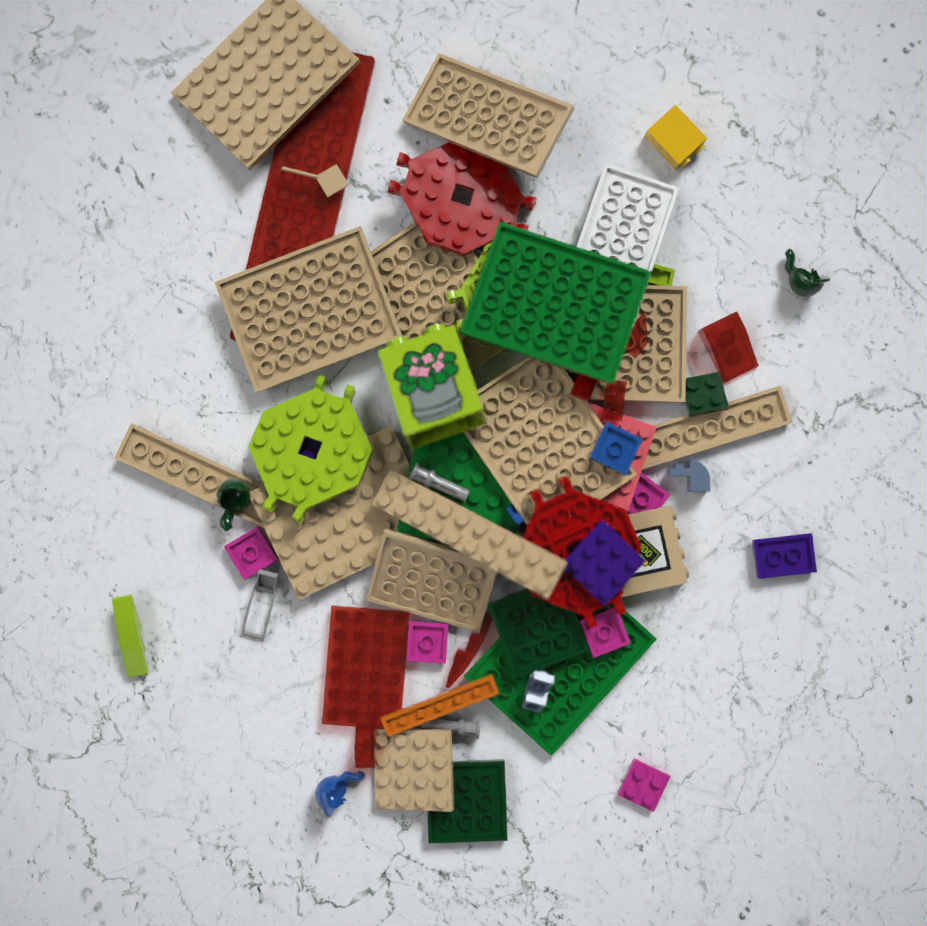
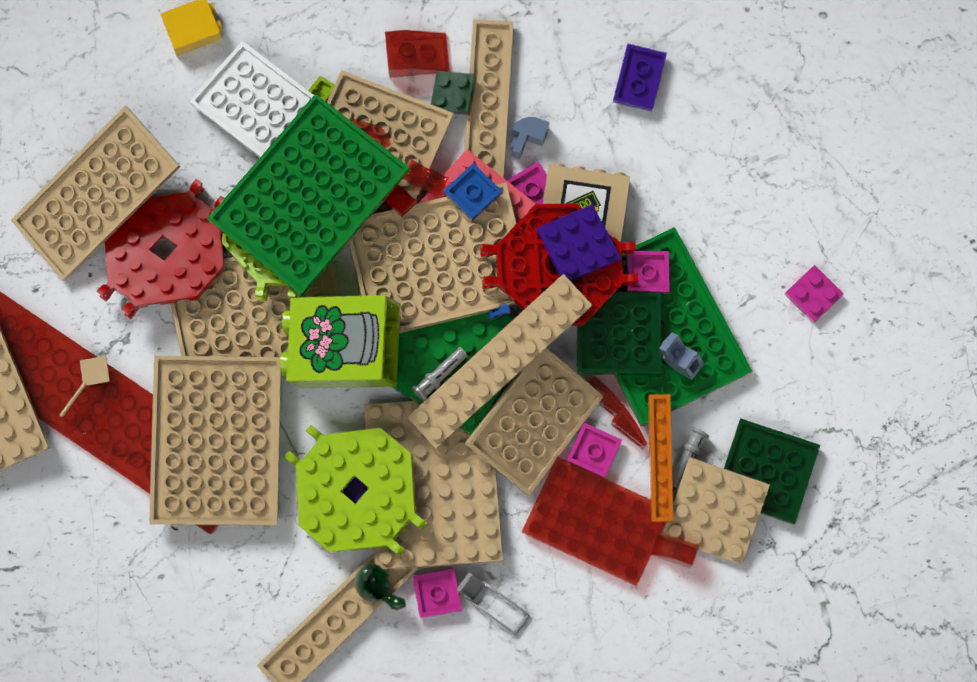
camera: 70 degrees left, 10 degrees down
(331, 790) = (705, 598): blue piece -> none

